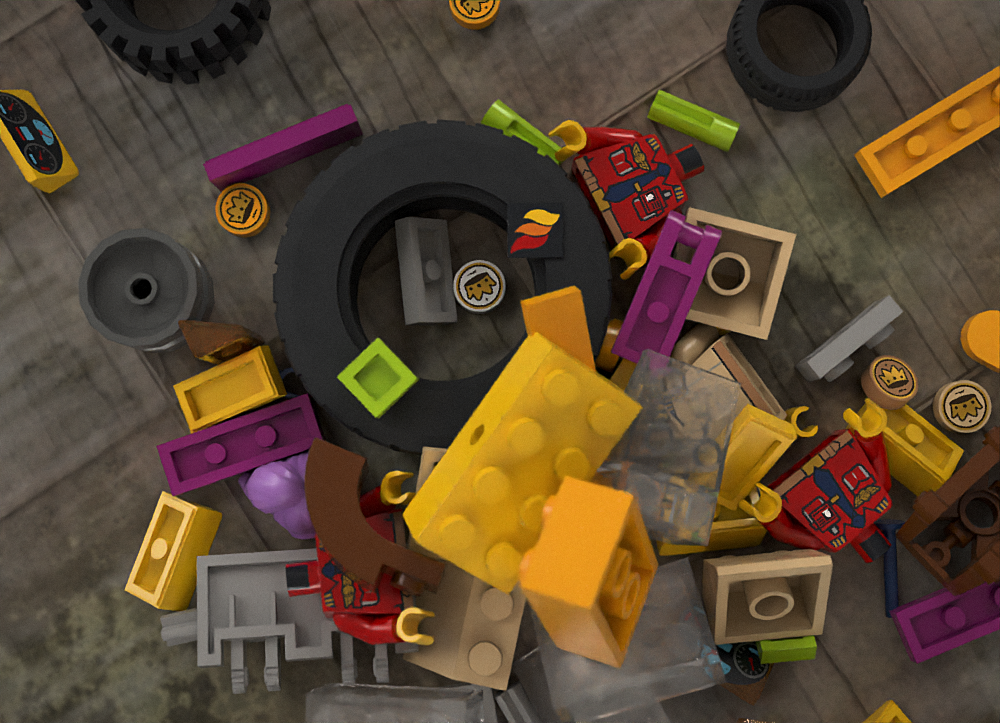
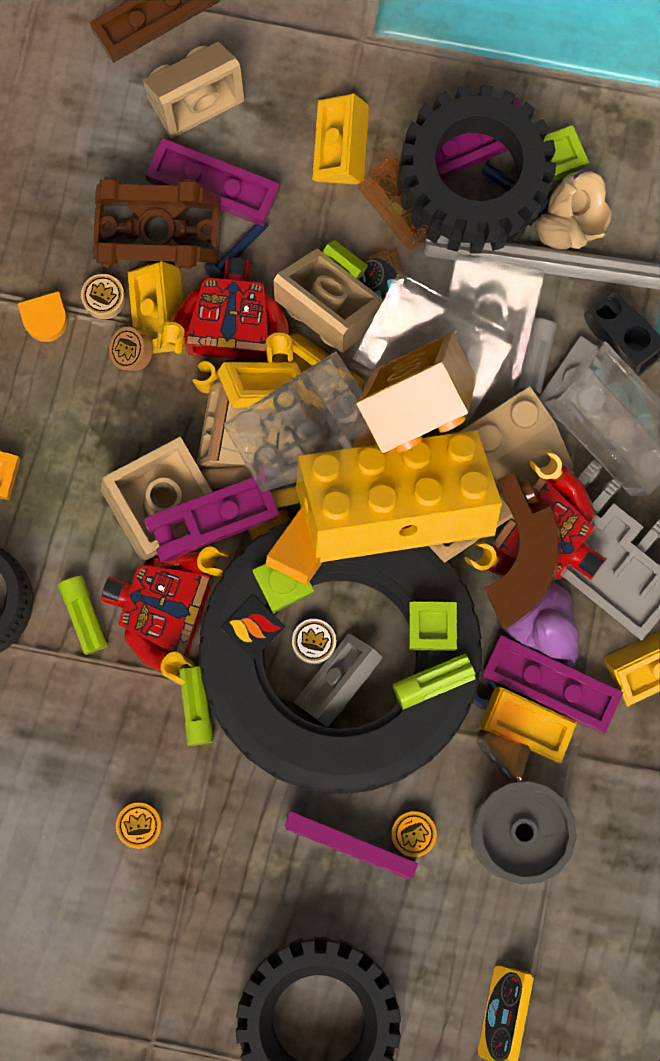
camera: 140 degrees left, 5 degrees down
(332, 332) = (434, 681): none -> lime piece
(542, 278) = (279, 588): none -> lime plate
(867, 328) = (112, 392): light grey plate -> none

